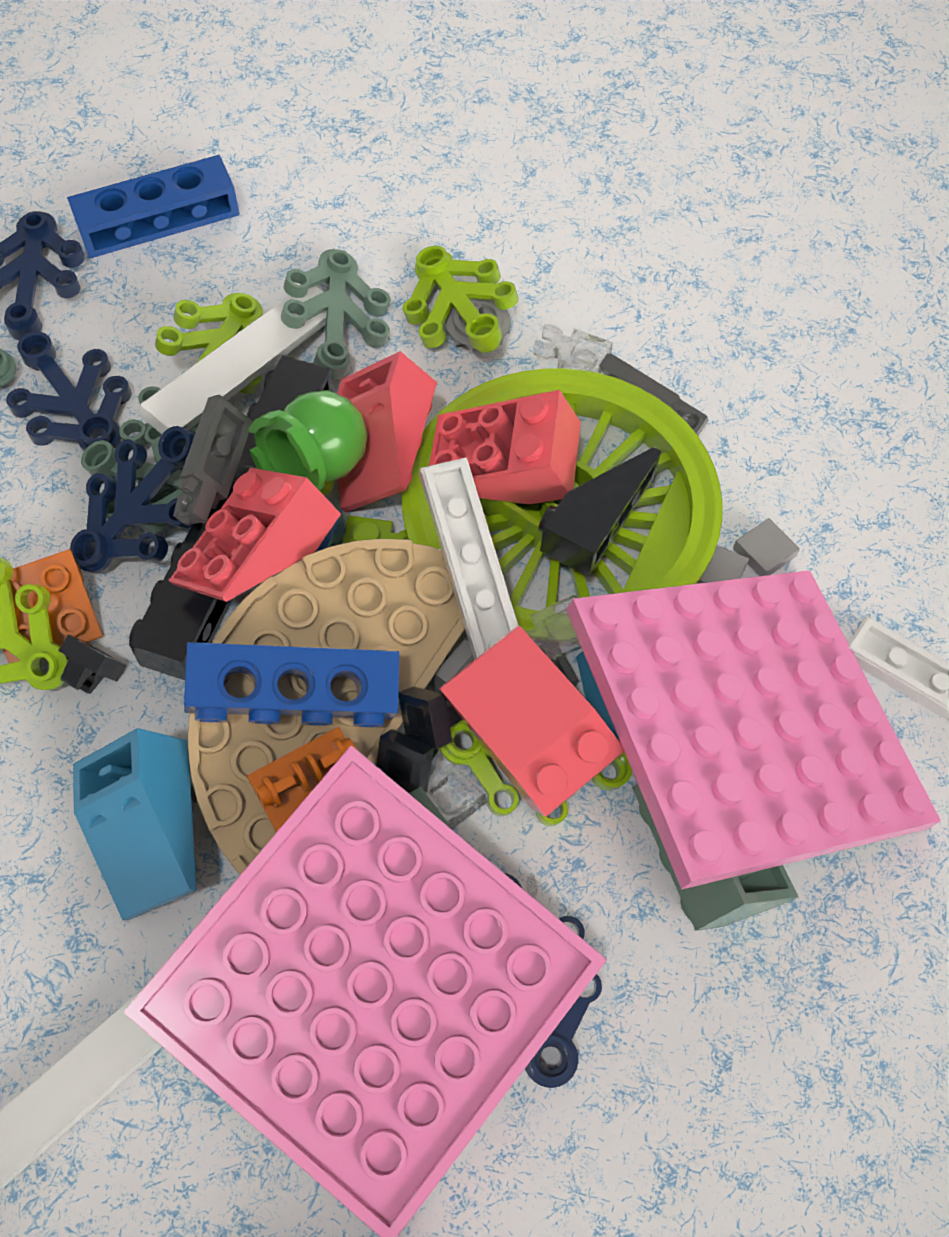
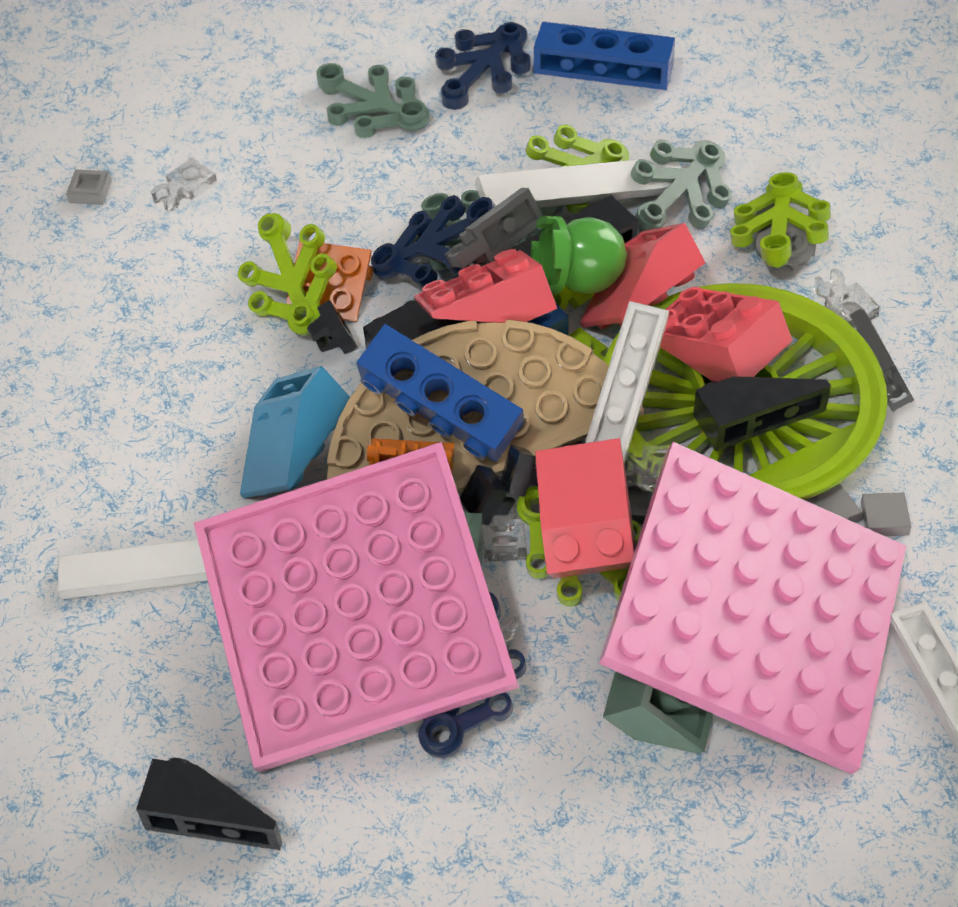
camera: 40 degrees right, 10 degrees down
(39, 354) = (449, 120): dark blue plant -> none

